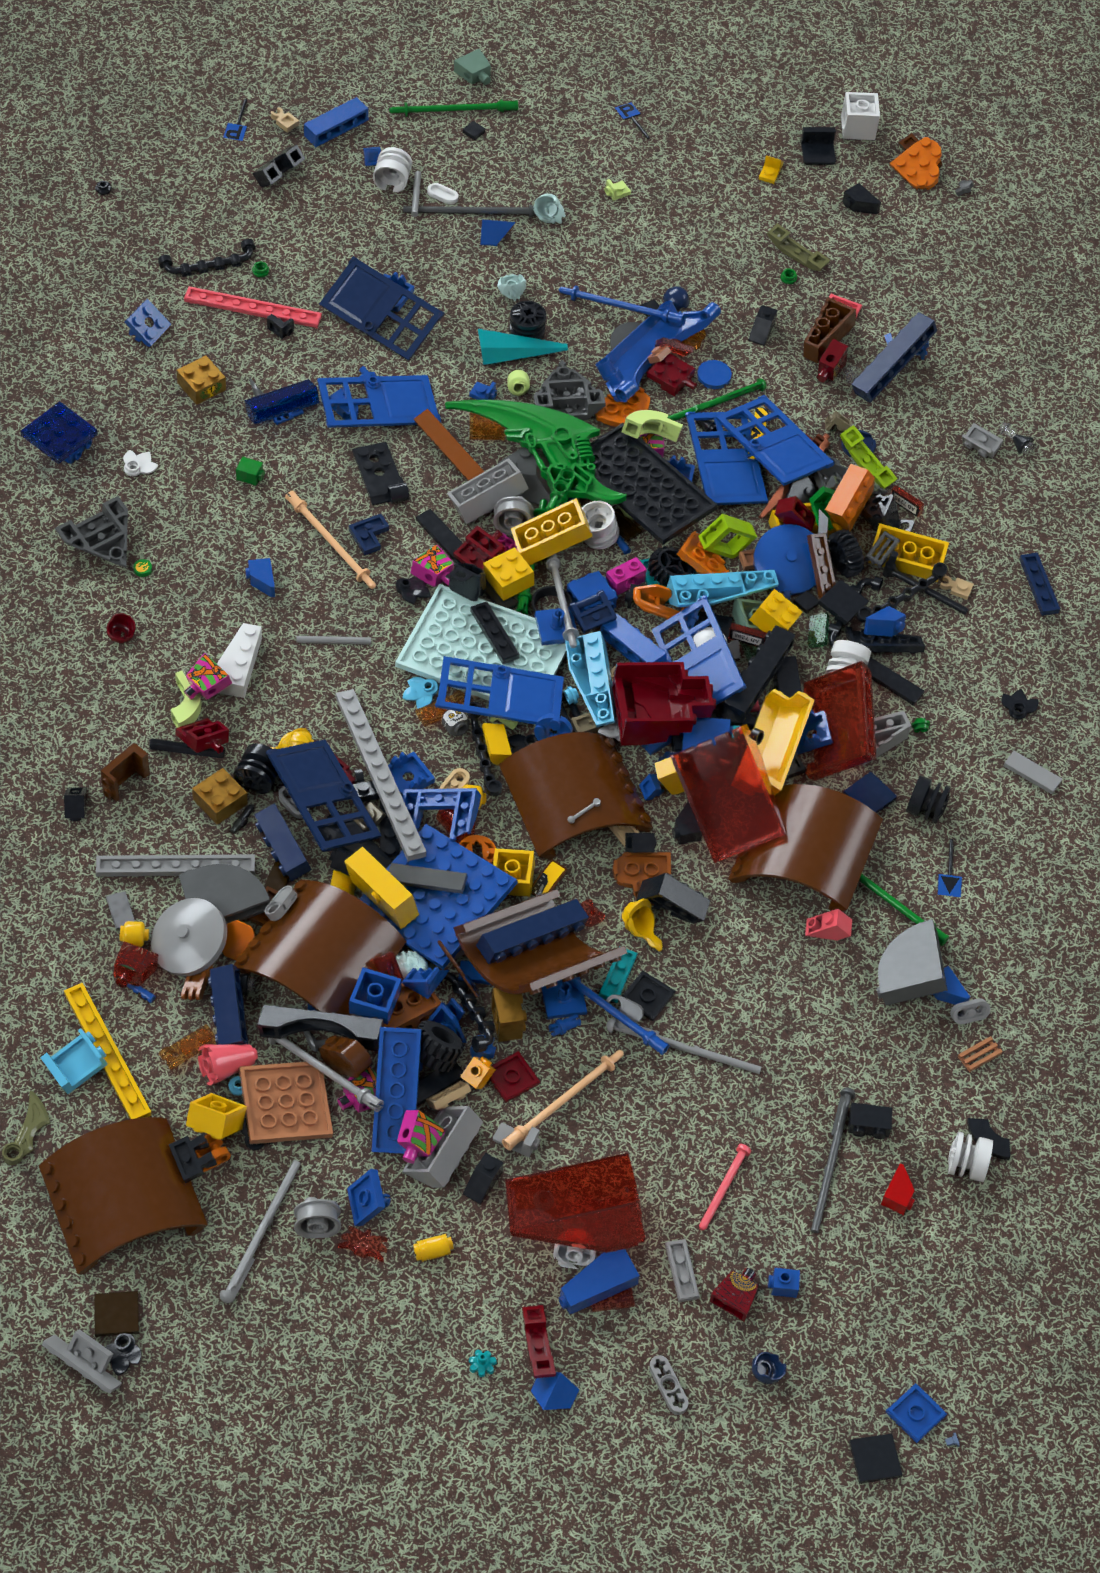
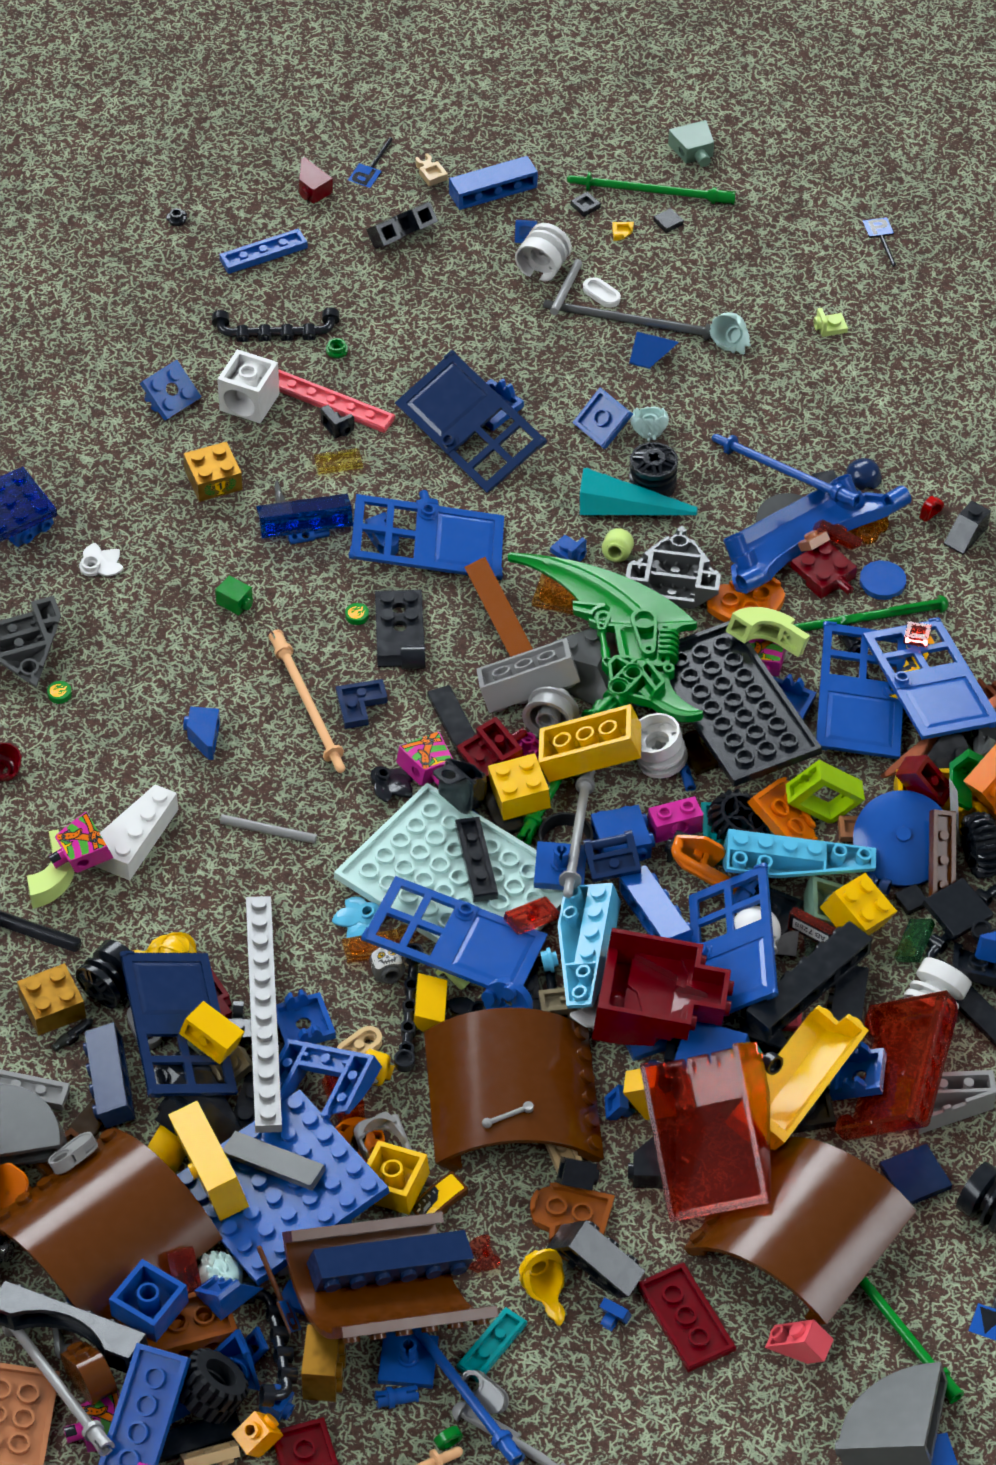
camera: 20 degrees right, 5 degrees down
(179, 203) = (263, 251): none -> blue plate
(199, 143) = (313, 182): none -> slope
(204, 735) = (57, 917): dark red plate -> none
(207, 310) = (248, 386): none -> white brick
(290, 355) = (338, 461): none -> clear yellow tile
(344, 468) = (357, 614): none -> green tile
(351, 796) = (211, 1032): none -> yellow panel
(408, 127) = (585, 204): none -> black tile
(441, 143) = (621, 230): none -> yellow tile
(477, 289) = (602, 418): none -> tile
(492, 834) = (382, 1121): none -> light grey helmet
(548, 665) = (531, 915): none -> clear red plate
(610, 1045) = (448, 1438): none -> green tile
(650, 994) = (525, 1381): black tile -> none
(696, 934) = (613, 1313): none -> blue tile
(732, 315) = (930, 508): none -> red tile
(745, 926) = (686, 1317): none -> dark red tile
(755, 409) = (917, 634): none -> clear red tile

